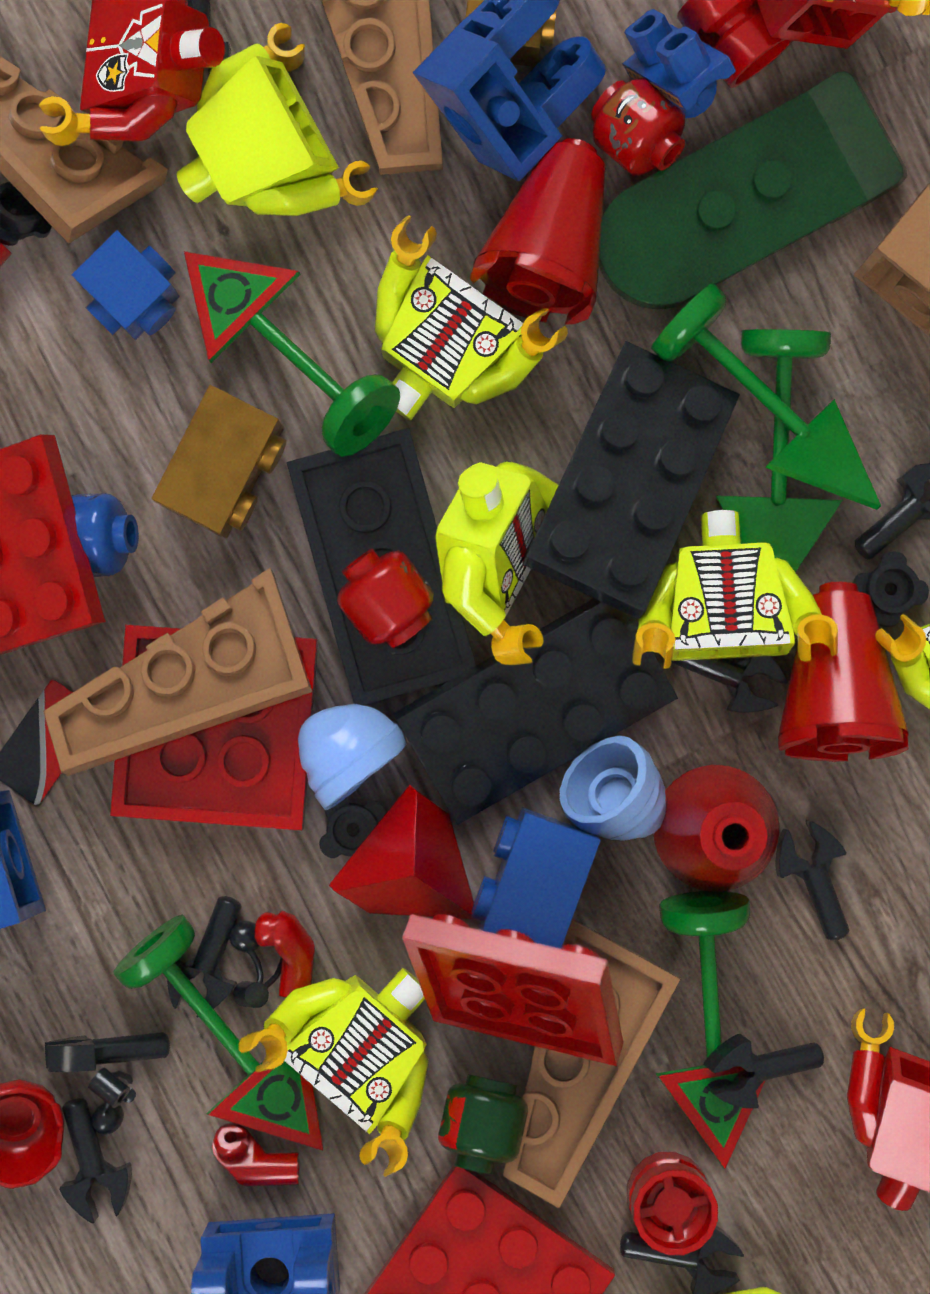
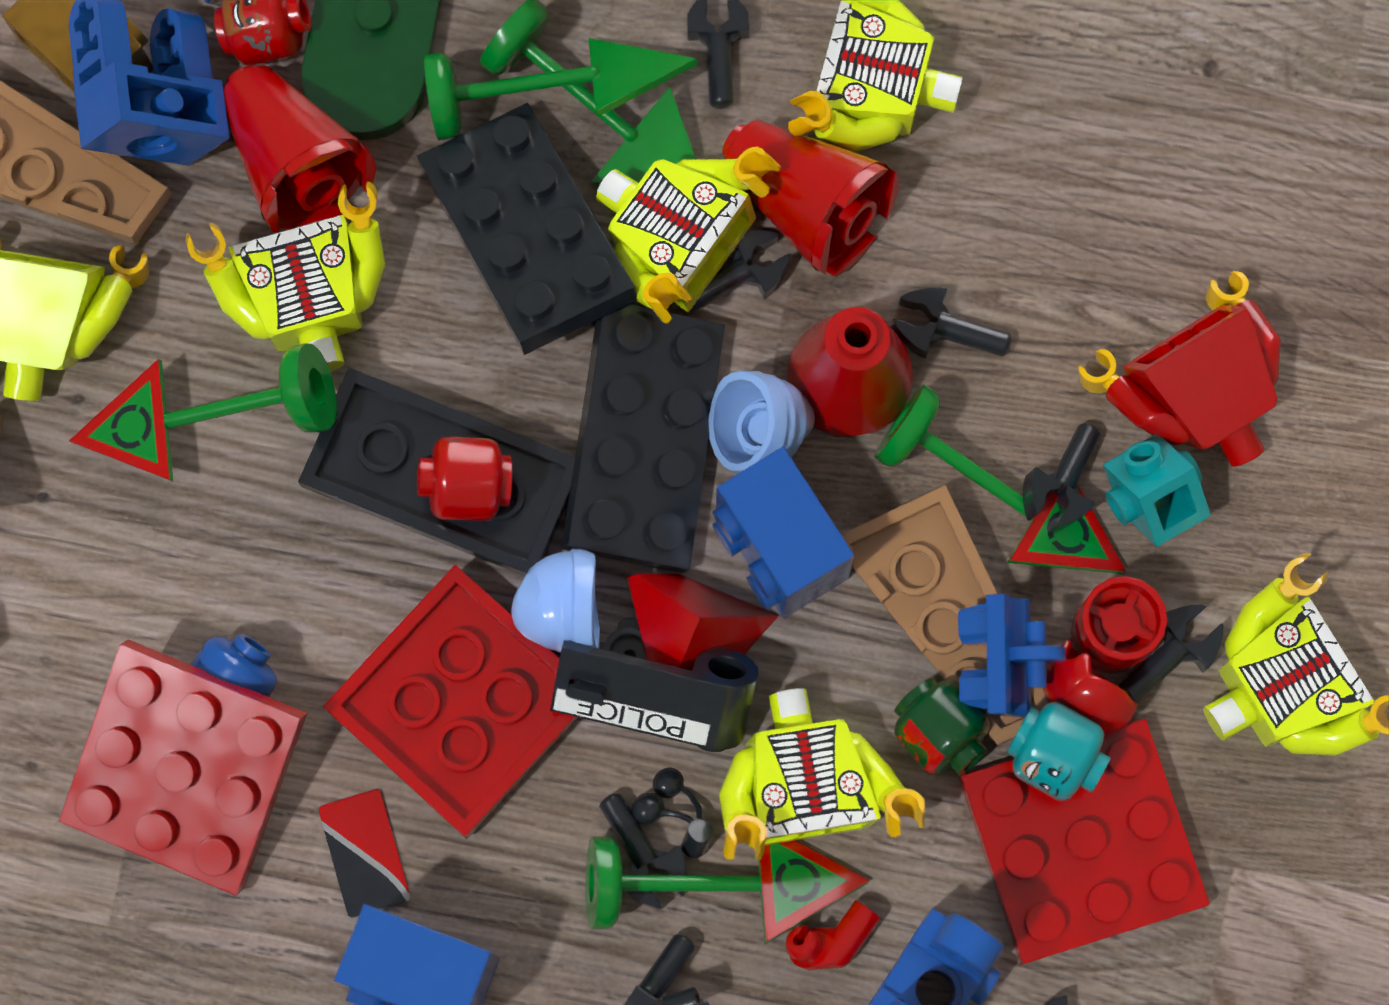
camera: 50 degrees left, 10 degrees down
(128, 287) = (60, 501): blue brick -> none
(203, 675) = (411, 670): medium nougat wing -> none
(220, 463) = (256, 535): pearl gold brick -> none
(292, 945) = (685, 773): red arm -> none
(347, 925) = (657, 699): none -> black door
(484, 548) = (490, 374): neon yellow torso -> none
(515, 987) = (850, 602): red plate -> none
(528, 1237) = (1058, 751): none -> teal head
(578, 1147) = (1014, 655): none -> blue hips
(595, 1217) = (1088, 691): none -> red hair
(806, 1152) = (1156, 489): none -> teal brick
(908, 592) = (767, 87): black plate -> none

